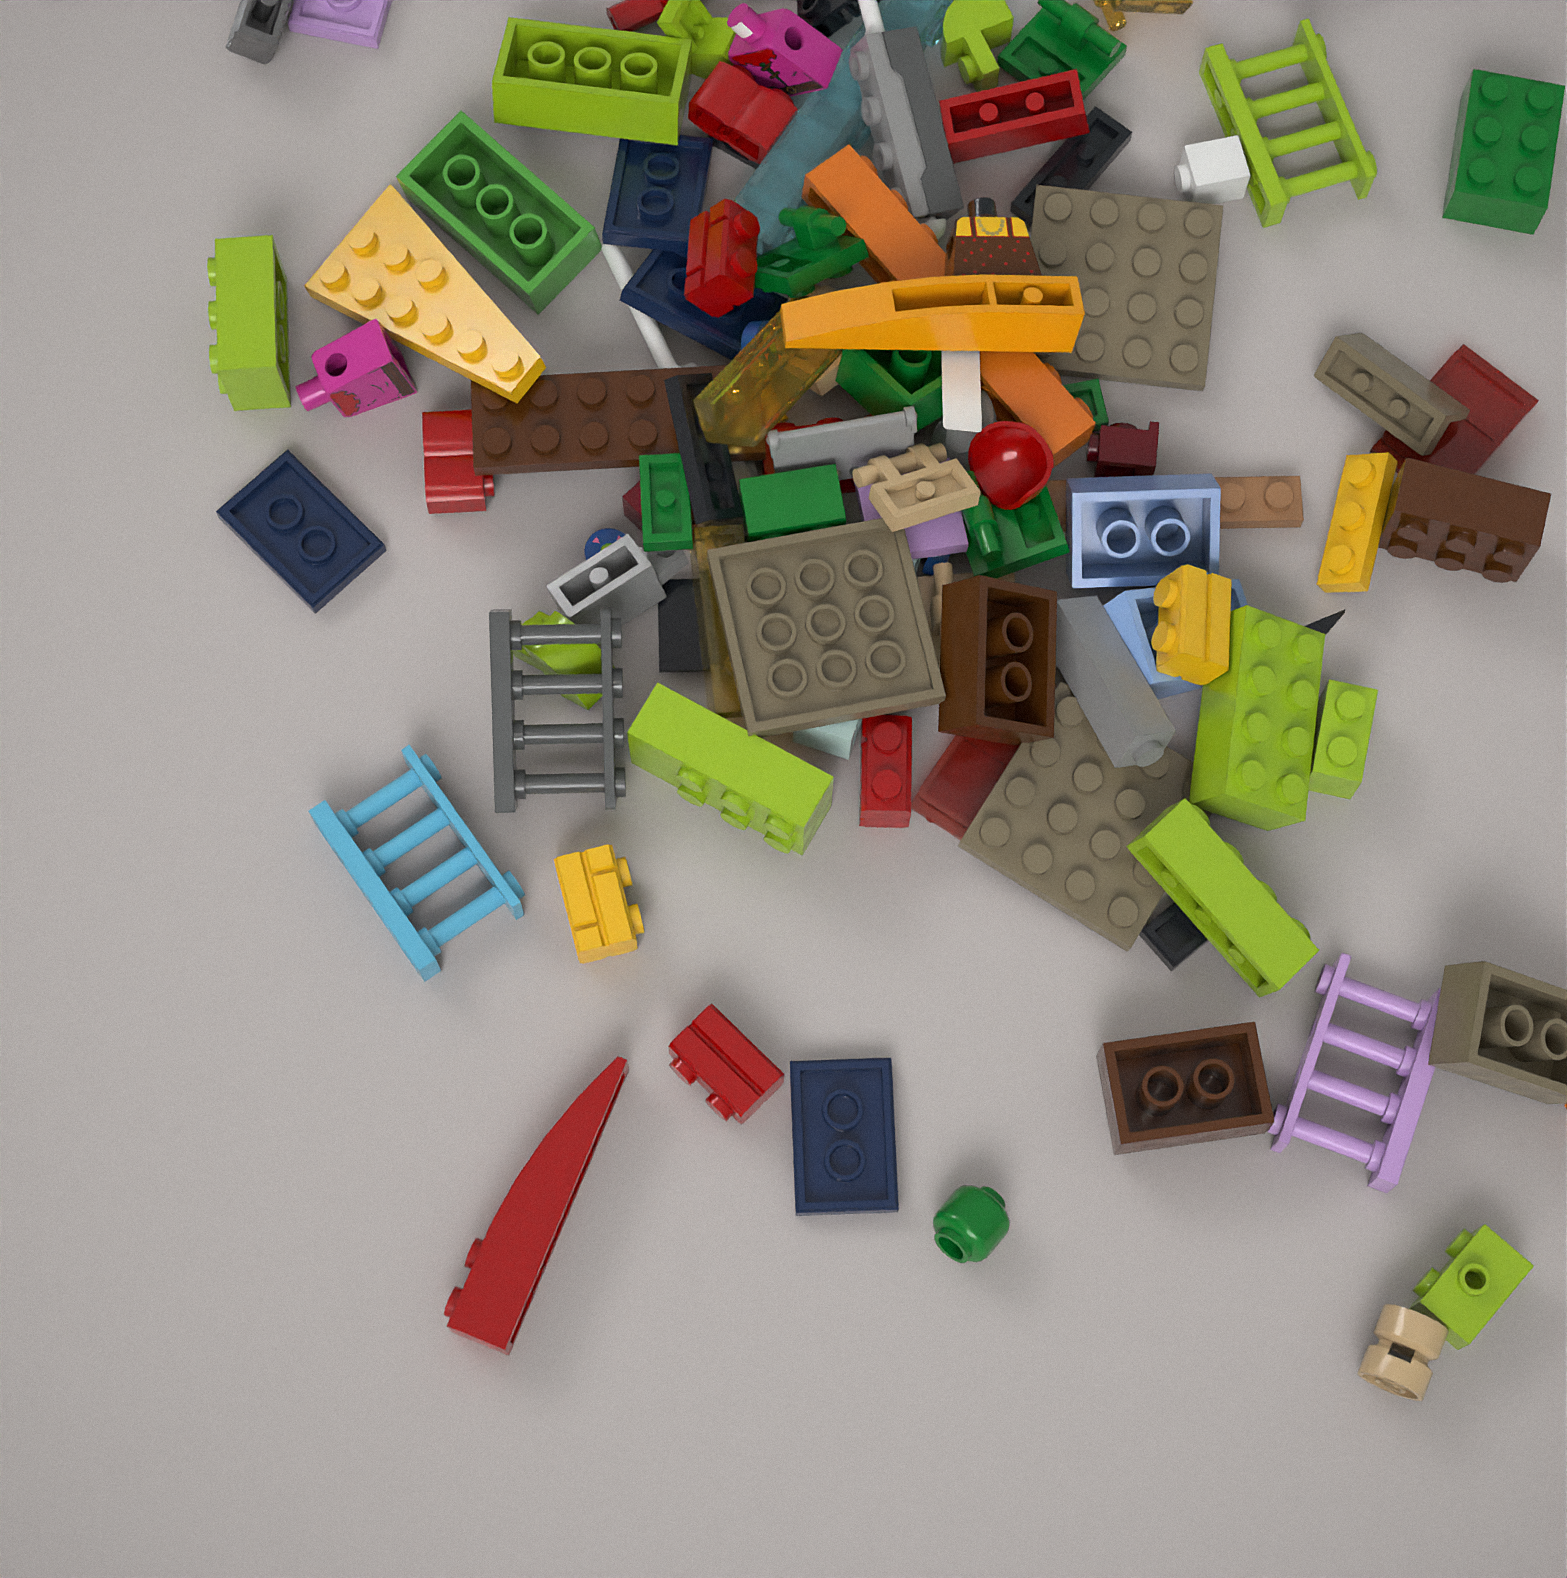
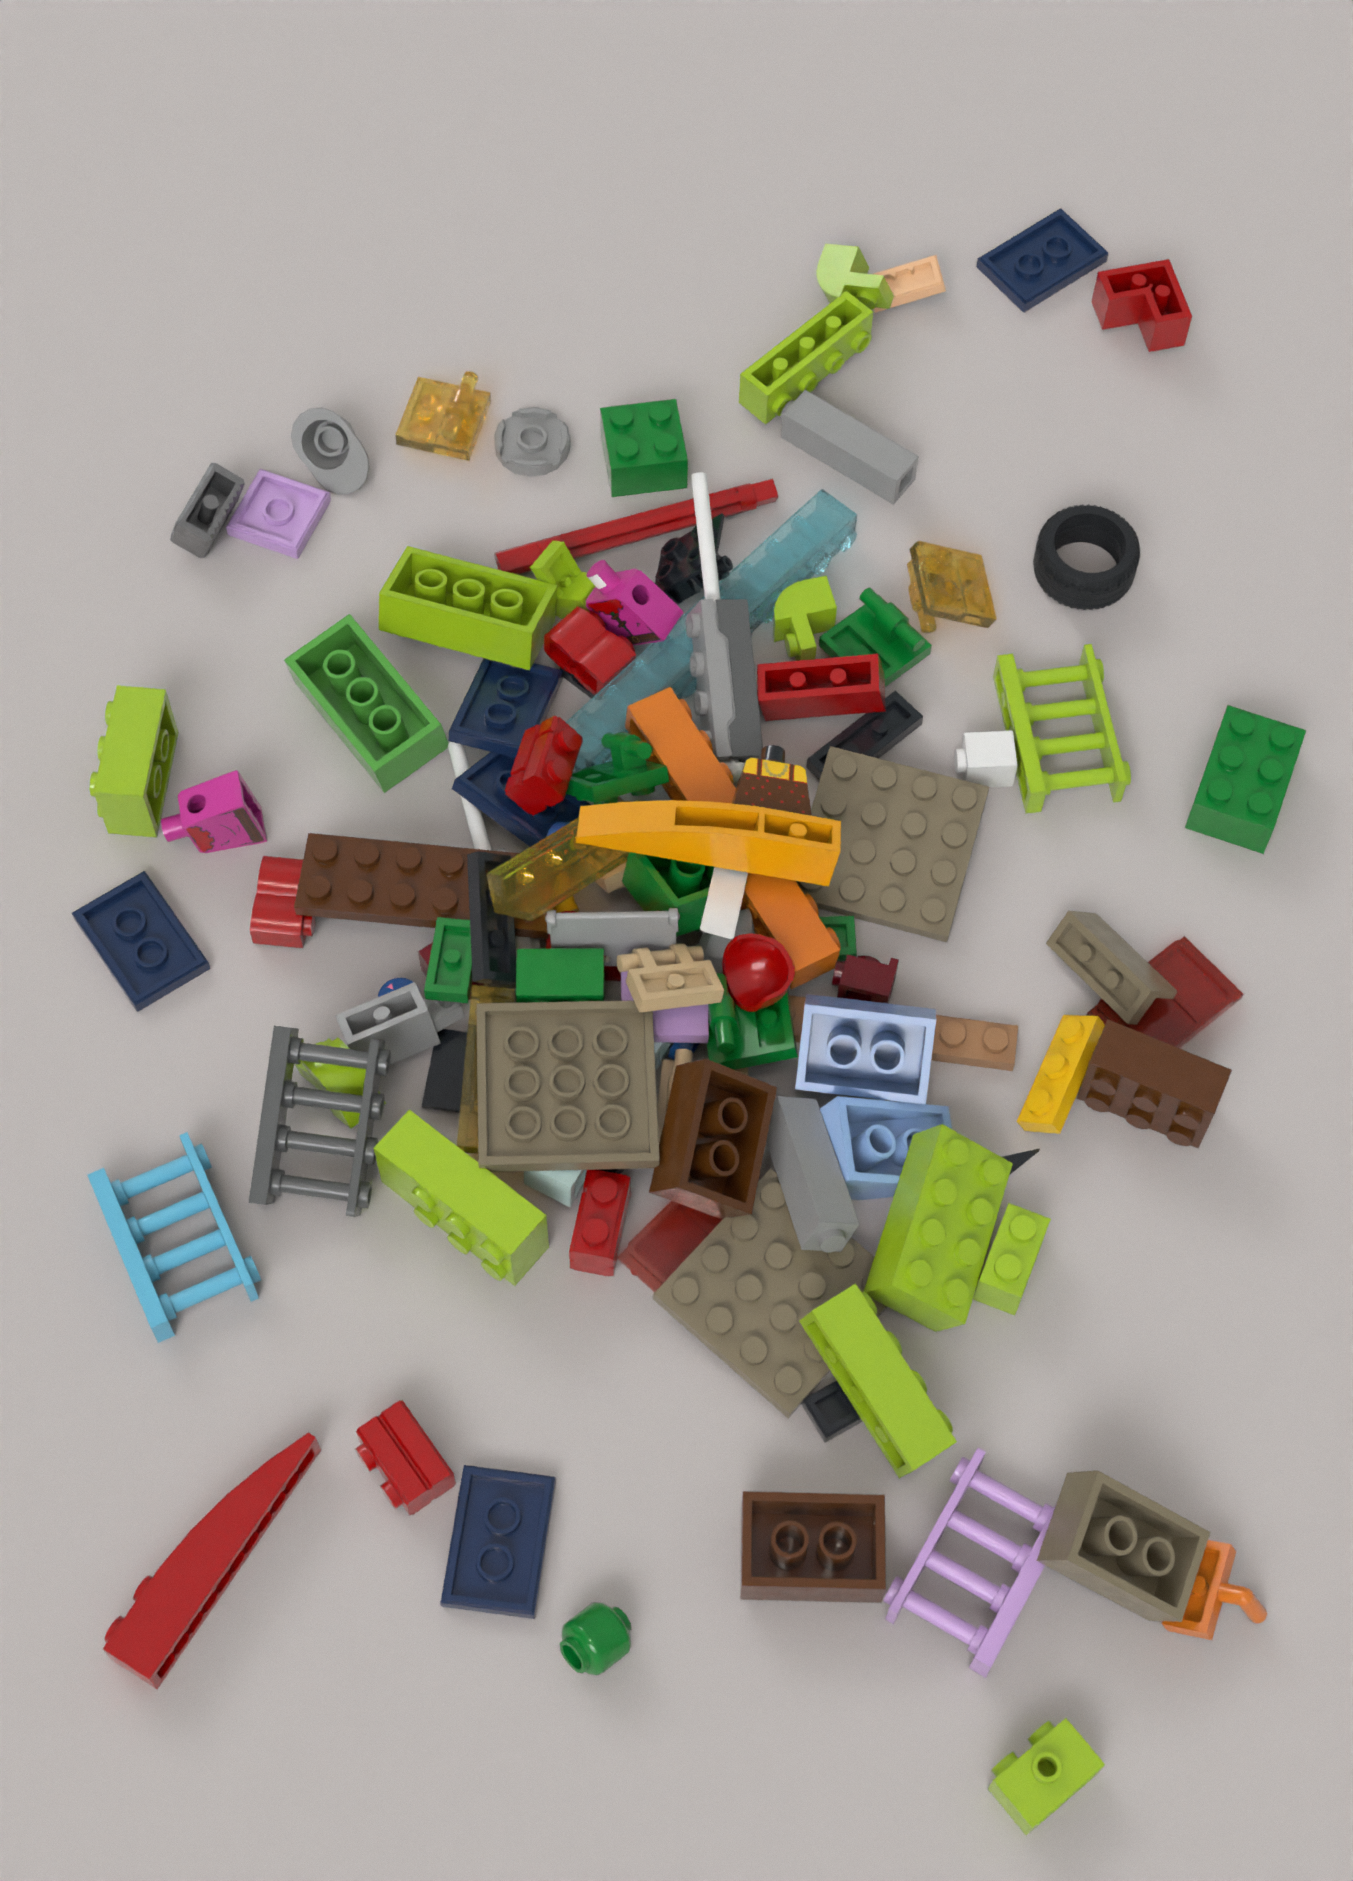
camera: 10 degrees right, 10 degrees down
(424, 298) = (285, 763): yellow wing -> none
(597, 903) = (322, 1297): yellow brick -> none
(1192, 625) = (892, 1135): yellow brick -> none
(1411, 1336) = (980, 1811): tan wheel -> none

